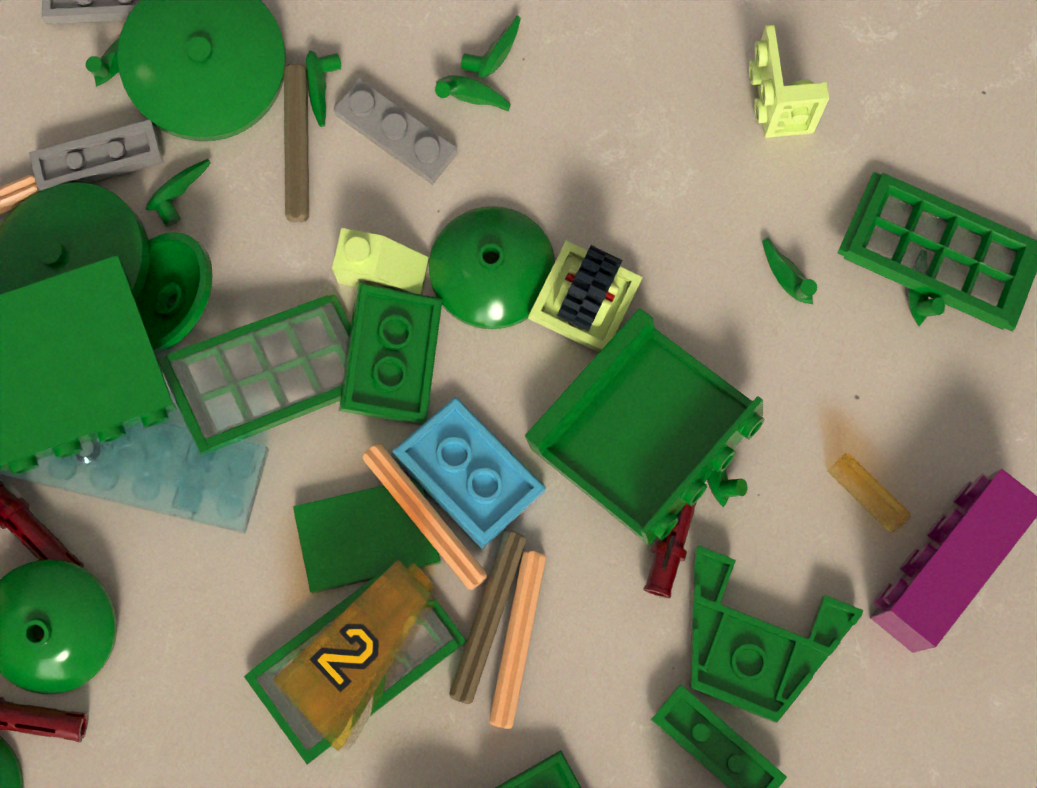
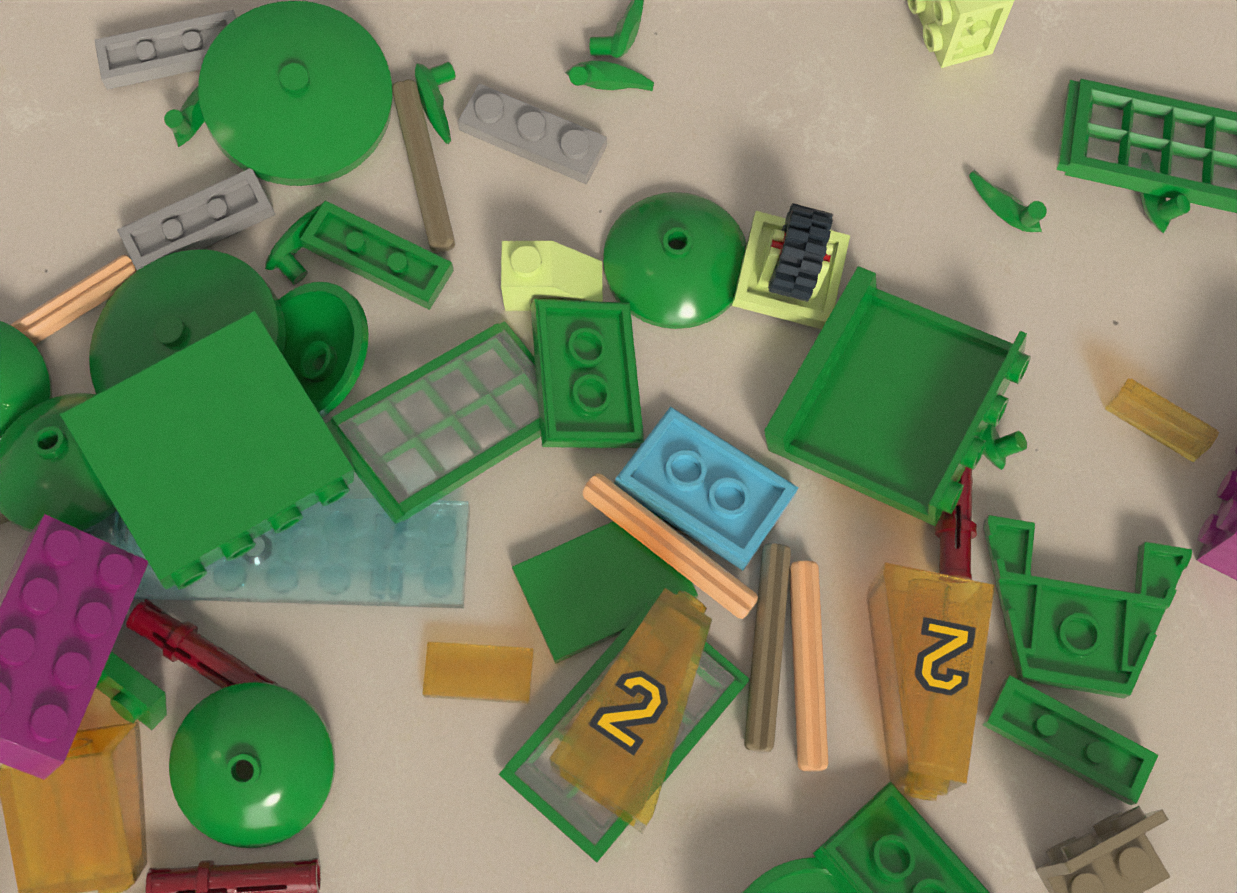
camera: 15 degrees left, 5 degrees down
(240, 215) = (377, 255): none -> green plate
(247, 588) = (478, 672): none -> clear yellow tile
(612, 662) = (929, 671): none -> clear yellow slope

